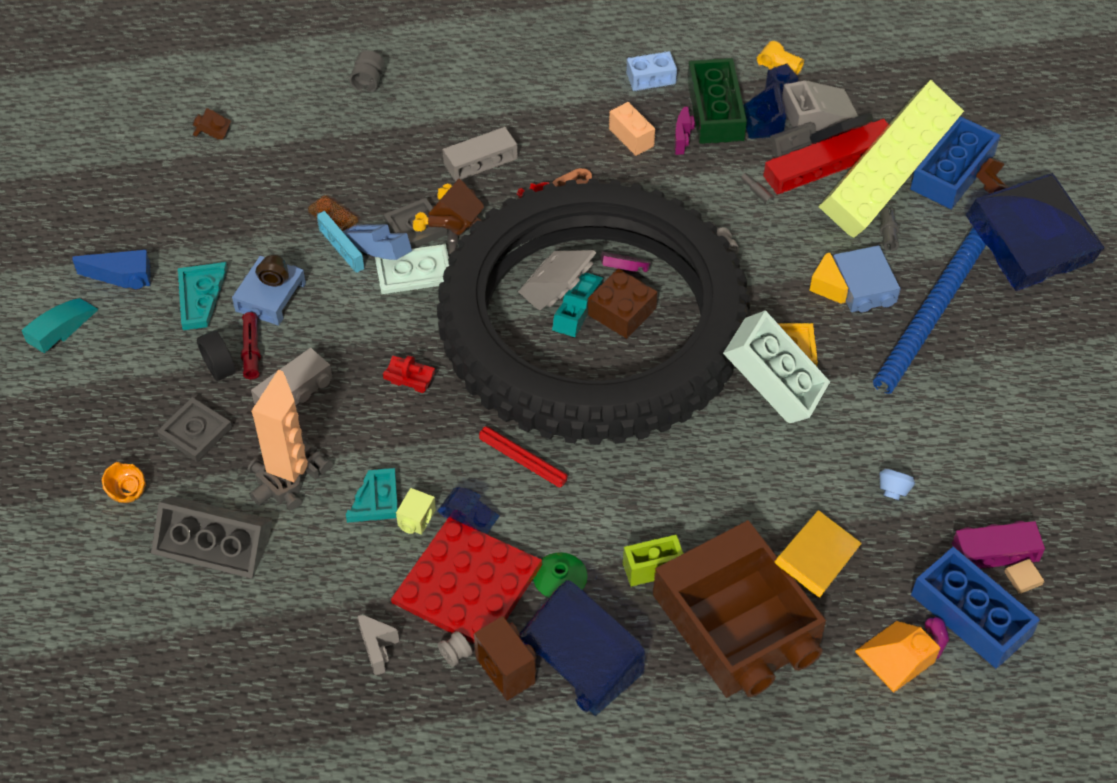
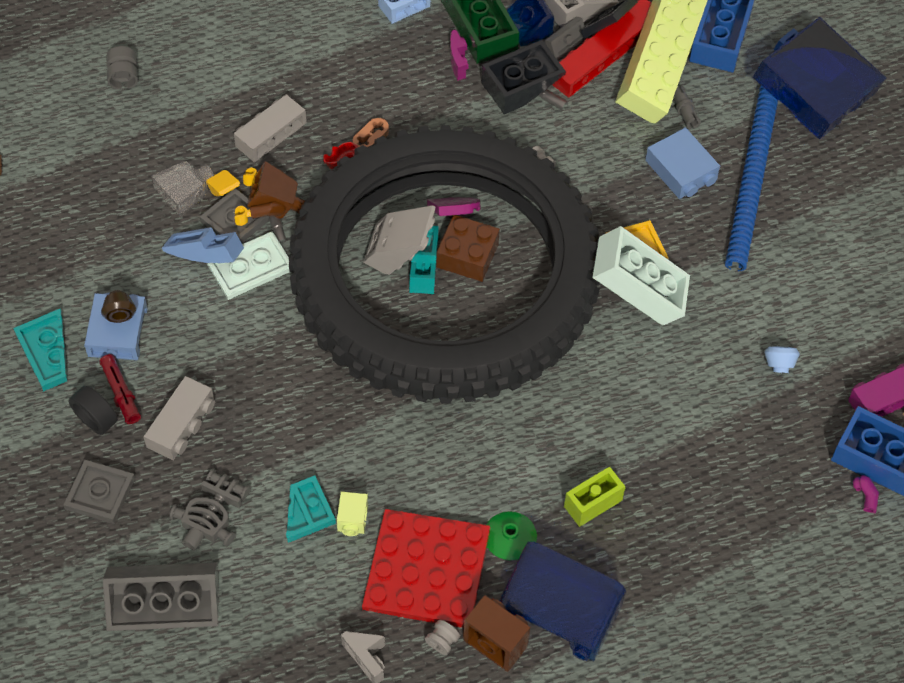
camera: 20 degrees left, 5 degrees up
(126, 477) = (52, 561): light orange hair -> none
(280, 430) = (203, 473): light nougat slope -> none
(338, 214) = (146, 229): clear orange plate -> none
(340, 242) = (167, 256): medium azure tile -> none
(380, 184) = (182, 186): none -> clear torso
(409, 373) = (291, 375): red hips -> none
(416, 191) = (222, 183): none -> yellow slope
(466, 508) = (399, 495): clear blue brick -> none
(523, 456) = (431, 428): red axle -> none
(632, 128) = (409, 65): light nougat brick -> none
(734, 162) = (521, 76): none -> black slope
(739, 610) = (691, 522): reddish brown brick -> none
(818, 553) = (742, 447): yellow tile -> none
(828, 280) = (651, 174): yellow slope -> none
(899, 654) = (841, 518): light orange slope -> none
(988, 175) = (757, 32): reddish brown bracket -> none

